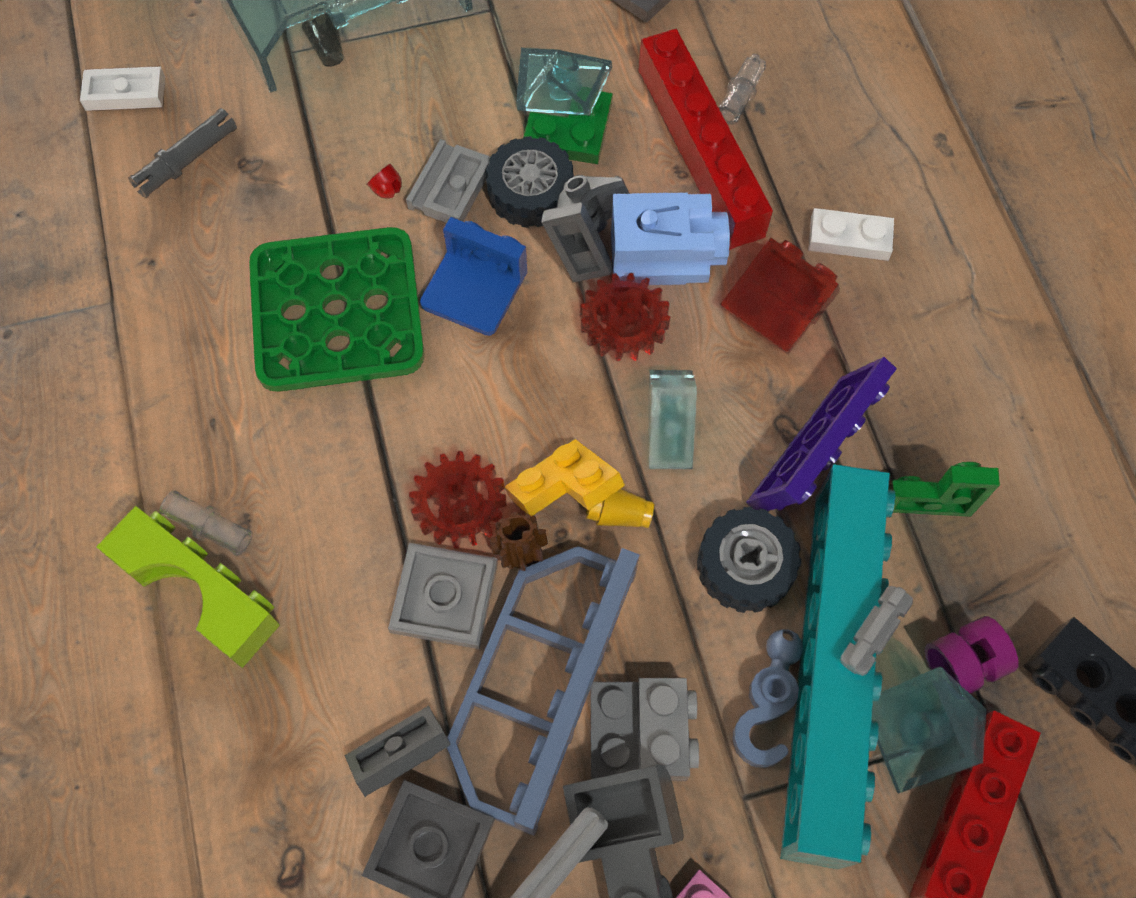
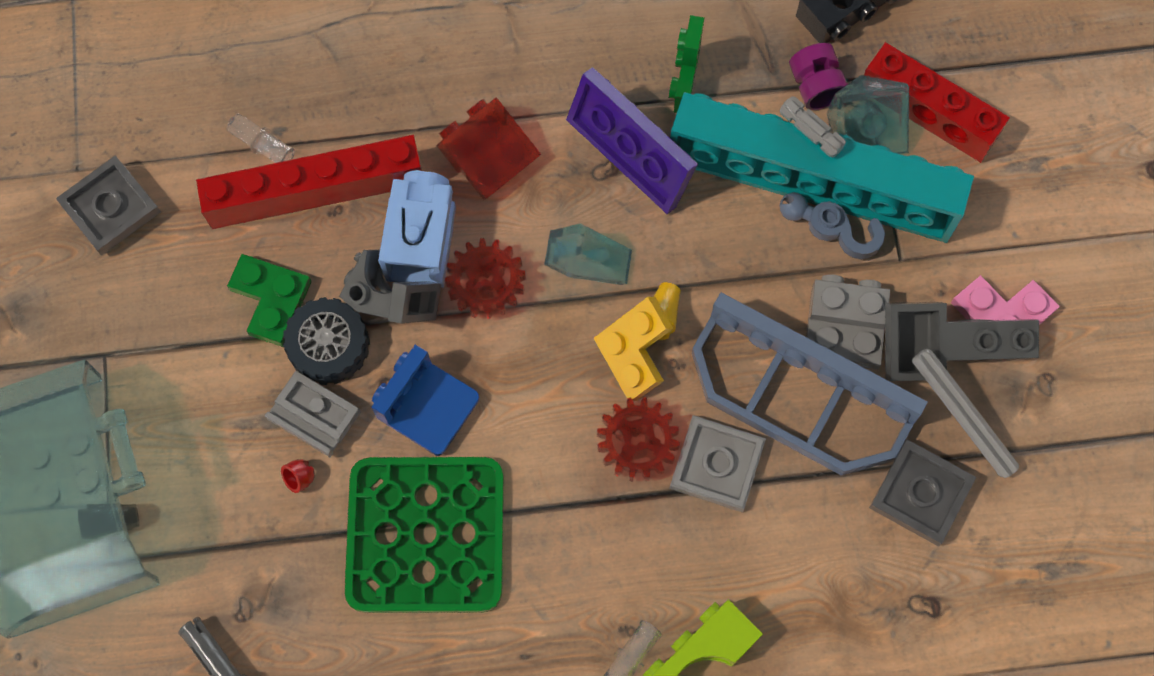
camera: 80 degrees left, 5 degrees up
(396, 751) = (846, 509): dark grey plate -> none
(518, 541) = (676, 384): reddish brown gear -> none
(560, 81) = (225, 295): clear light blue slope -> none
(748, 559) = (719, 219): black wheel -> none
(851, 234) = (431, 82): white plate -> none

